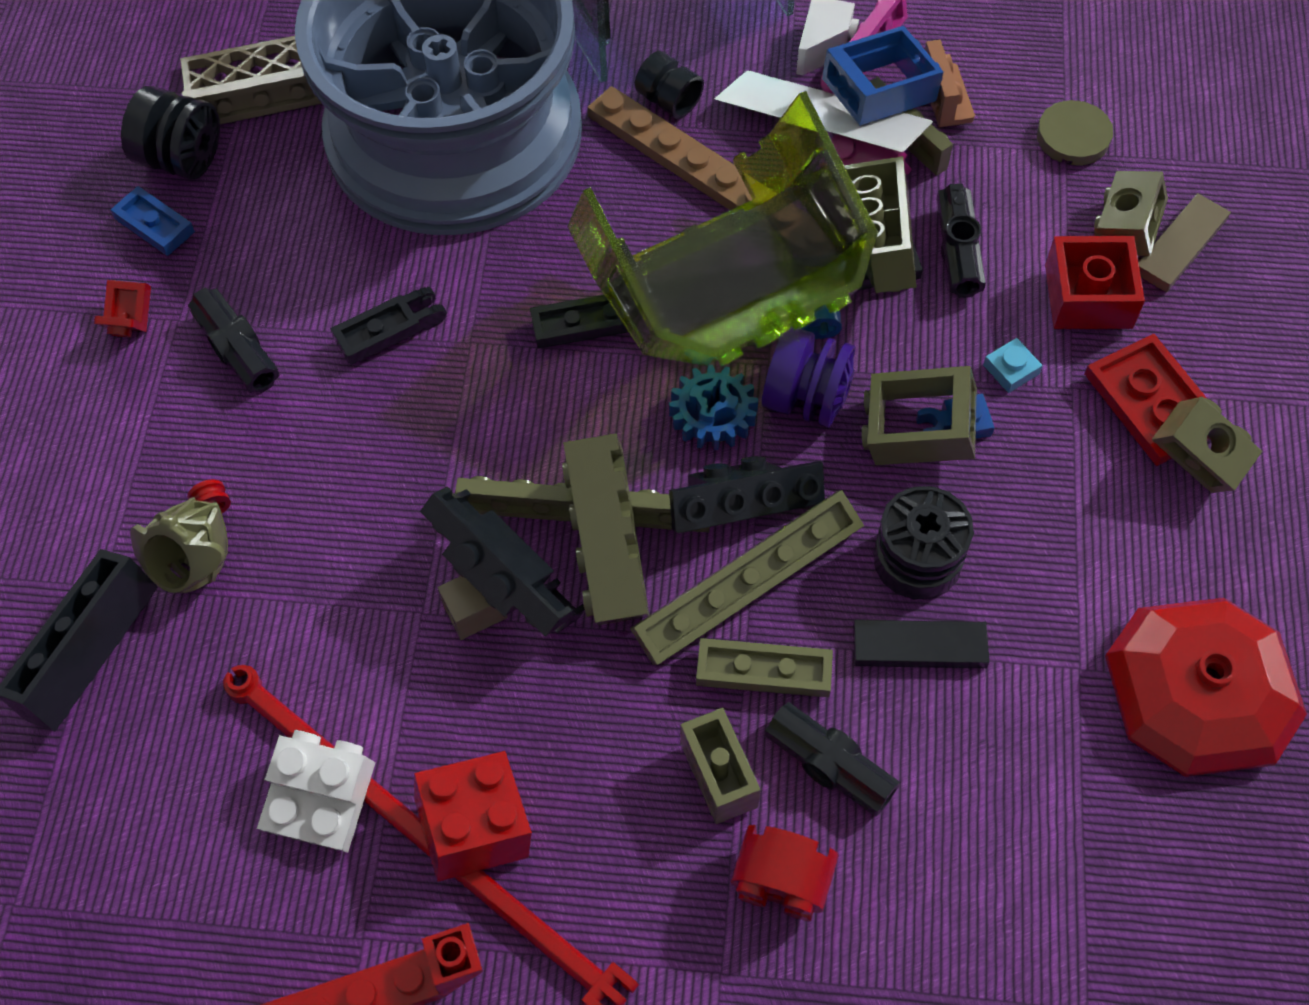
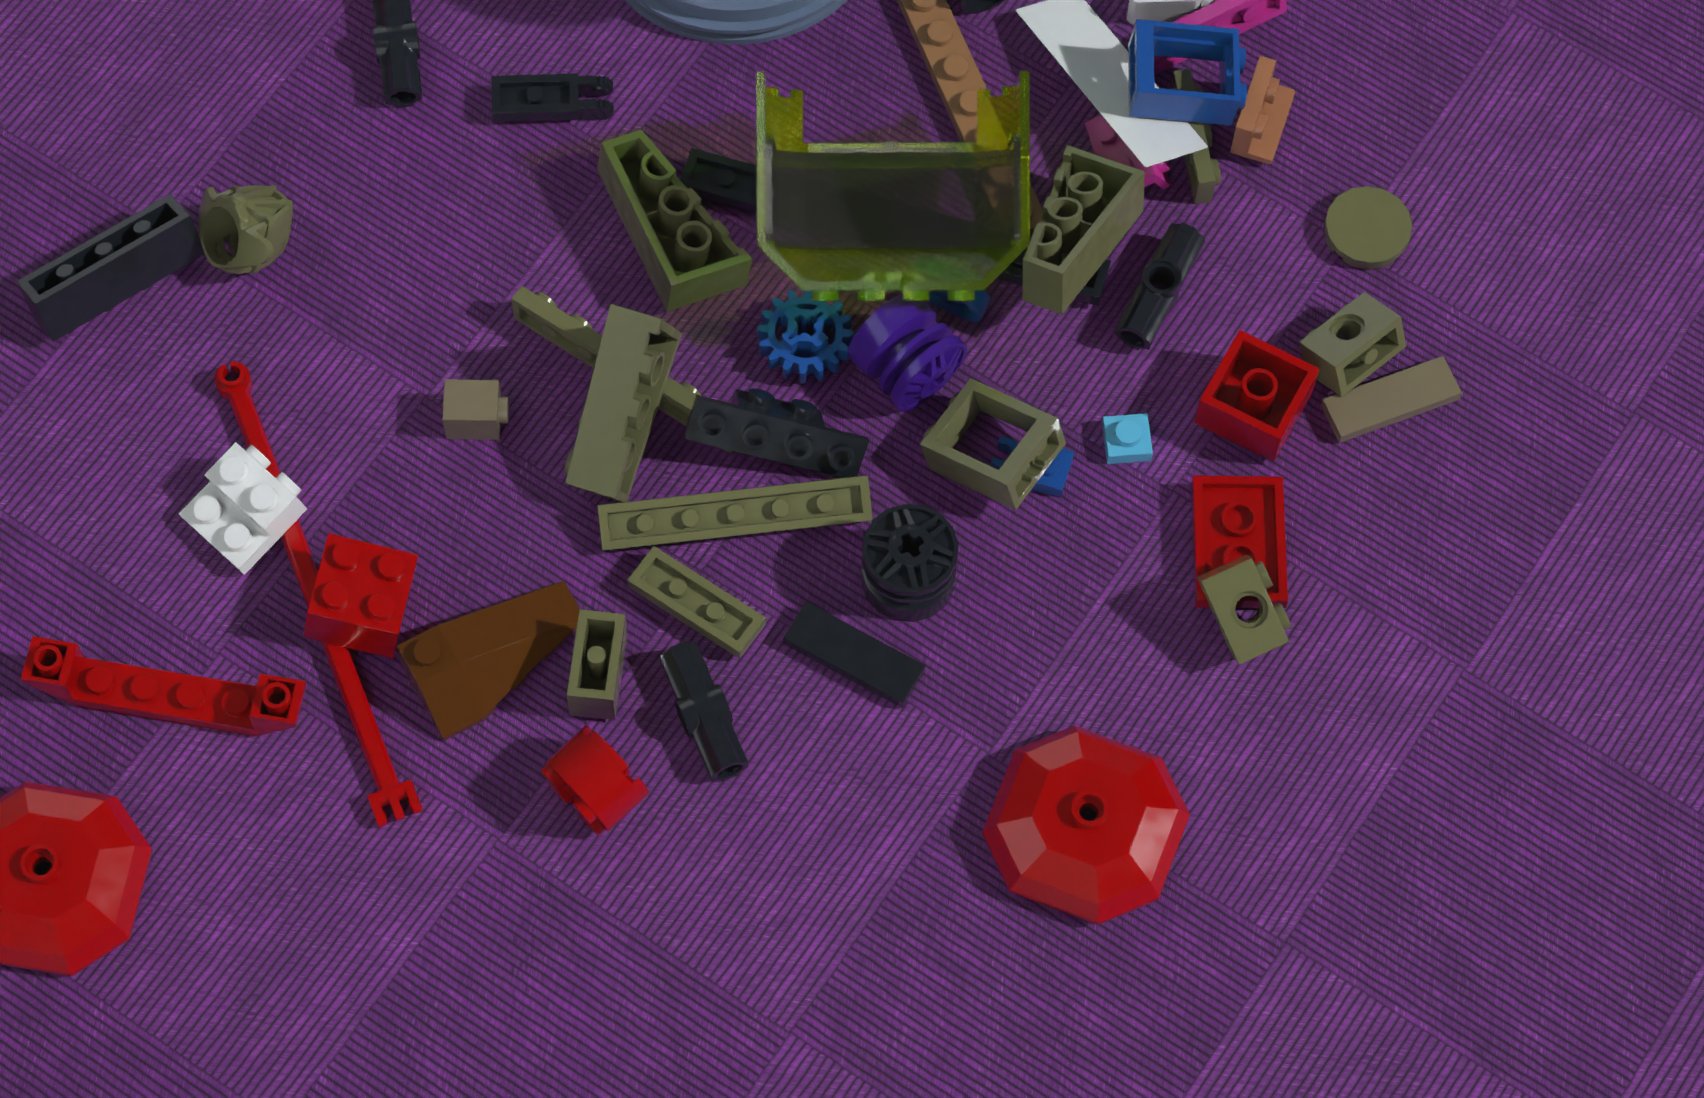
camera: 25 degrees right, 5 degrees up
(211, 492) = (295, 188): red bush -> none
(499, 562) = (507, 384): black bracket -> none
(545, 372) = (670, 229): none -> olive wedge
(607, 818) = (479, 658): none -> reddish brown wedge

